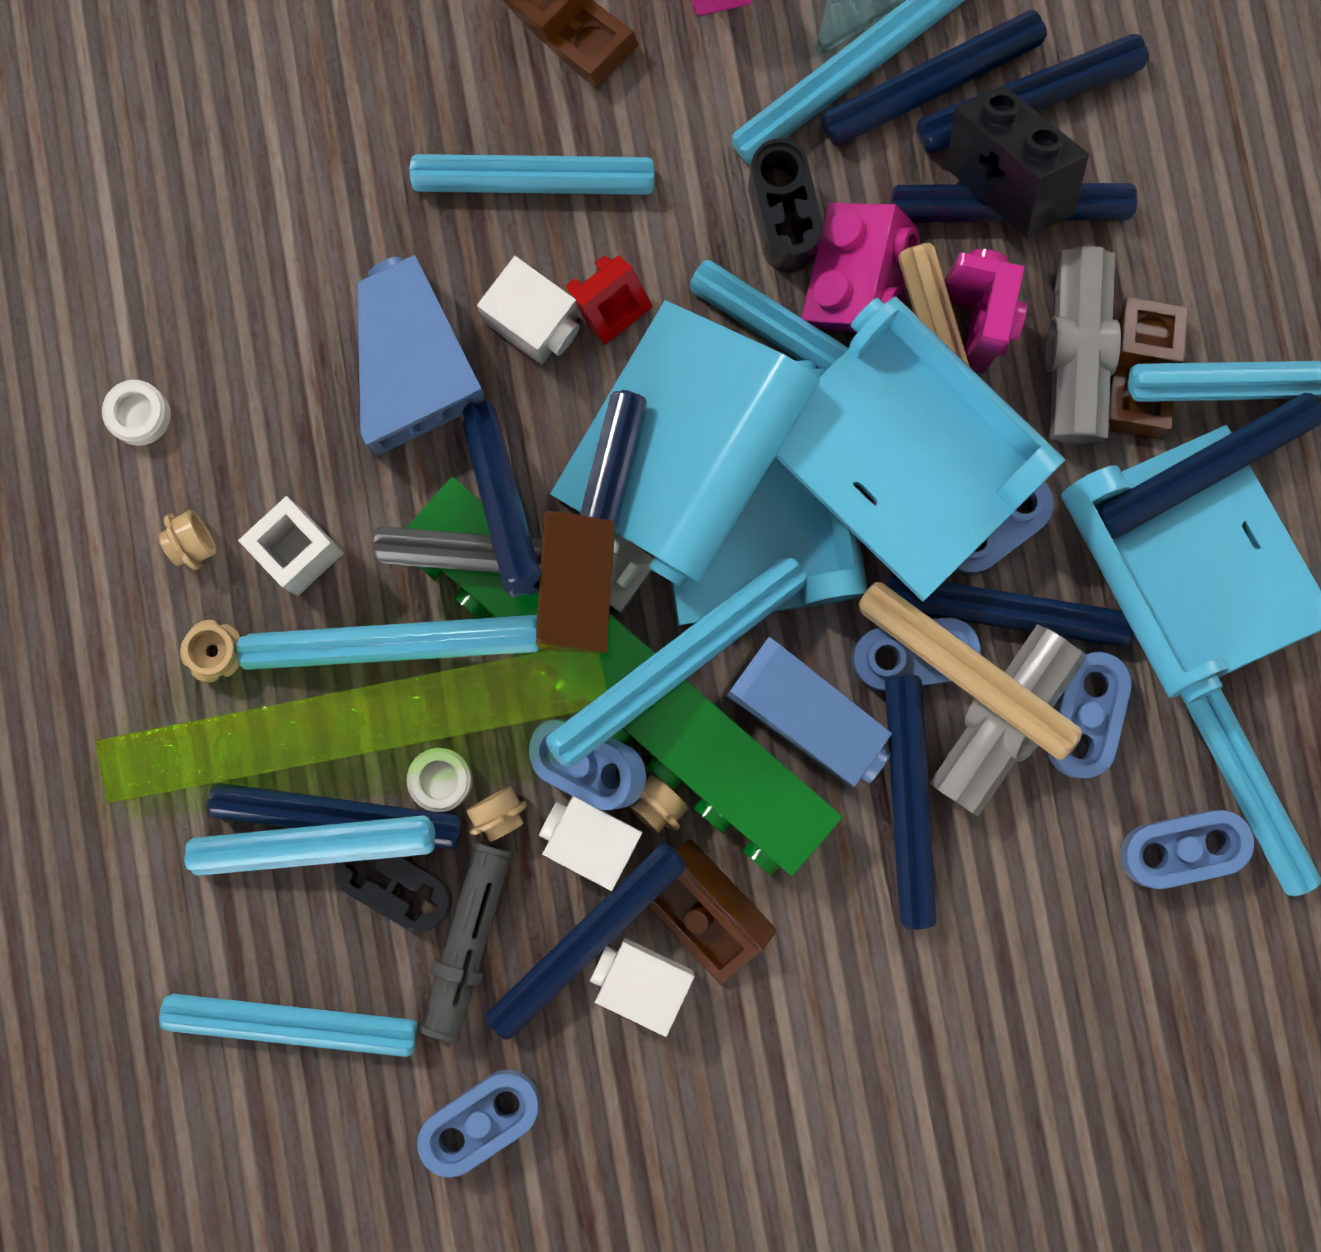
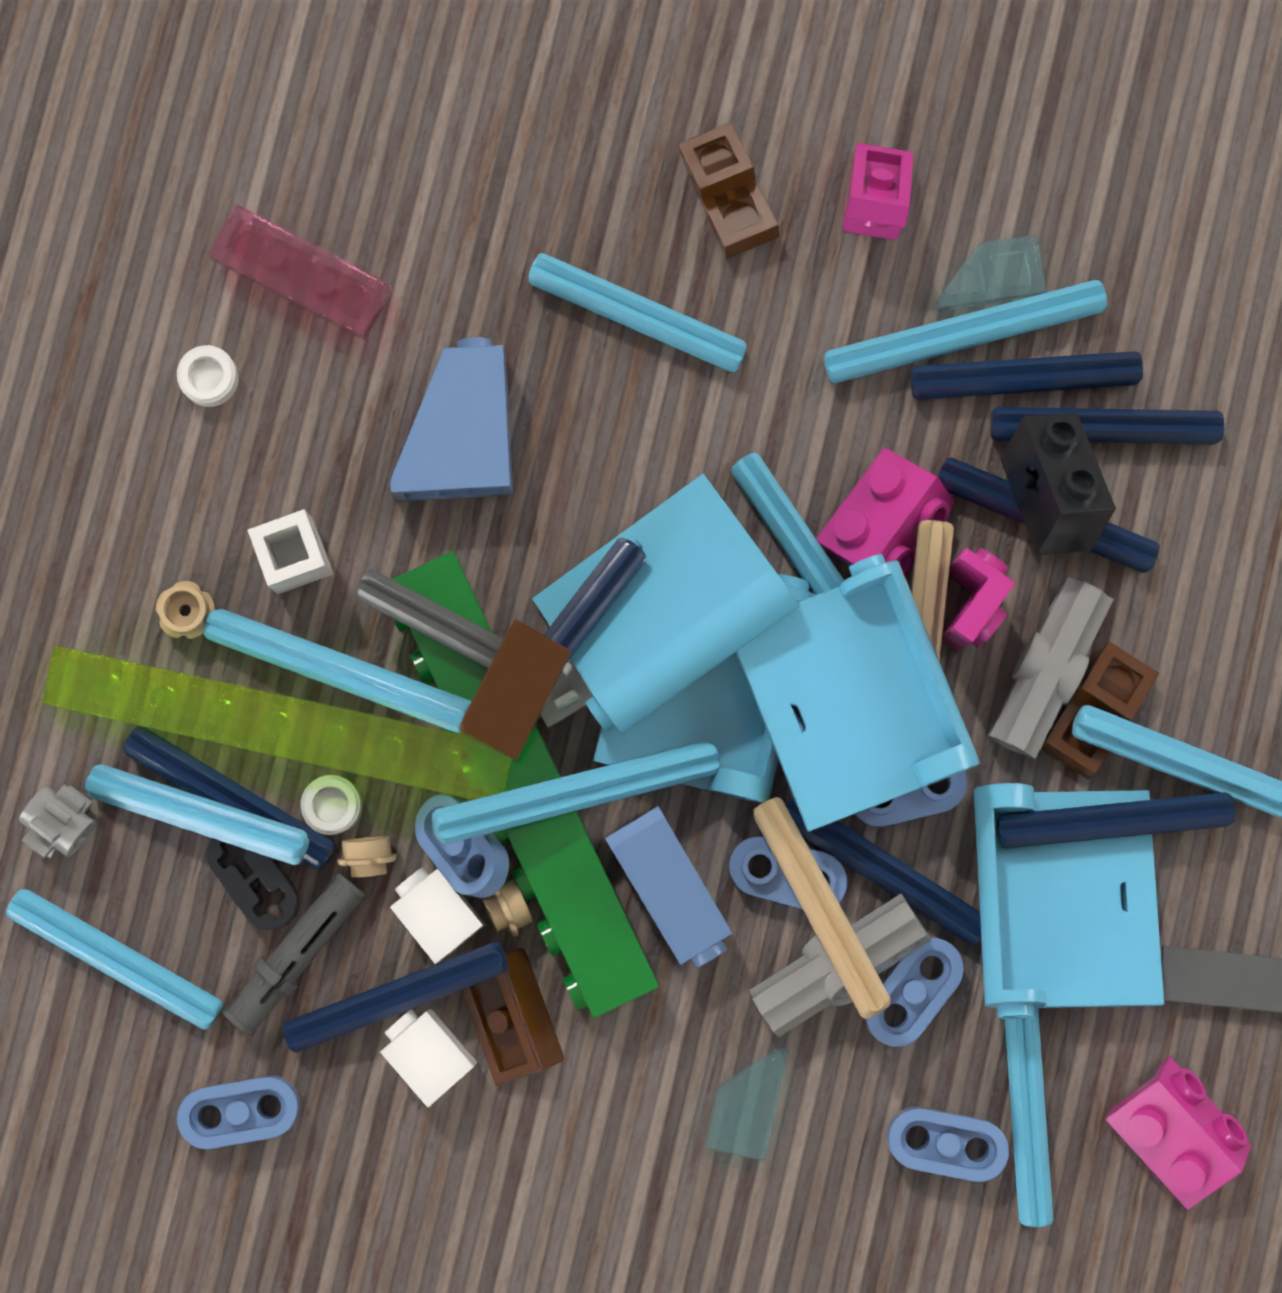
camera: 25 degrees right, 0 degrees up
(172, 913) = (57, 821): none -> light grey gear
(184, 271) = (300, 272): none -> clear pink plate
(186, 540) = (204, 506): tan plate -> none
(501, 500) = (484, 589): dark blue axle -> none
(530, 311) = (582, 434): white brick -> none
(610, 298) = (656, 451): red tile -> none
(772, 202) = (856, 450): black beam -> none
(910, 801) = (726, 998): dark blue axle -> none
(976, 899) = (747, 1108): none -> clear light blue tile

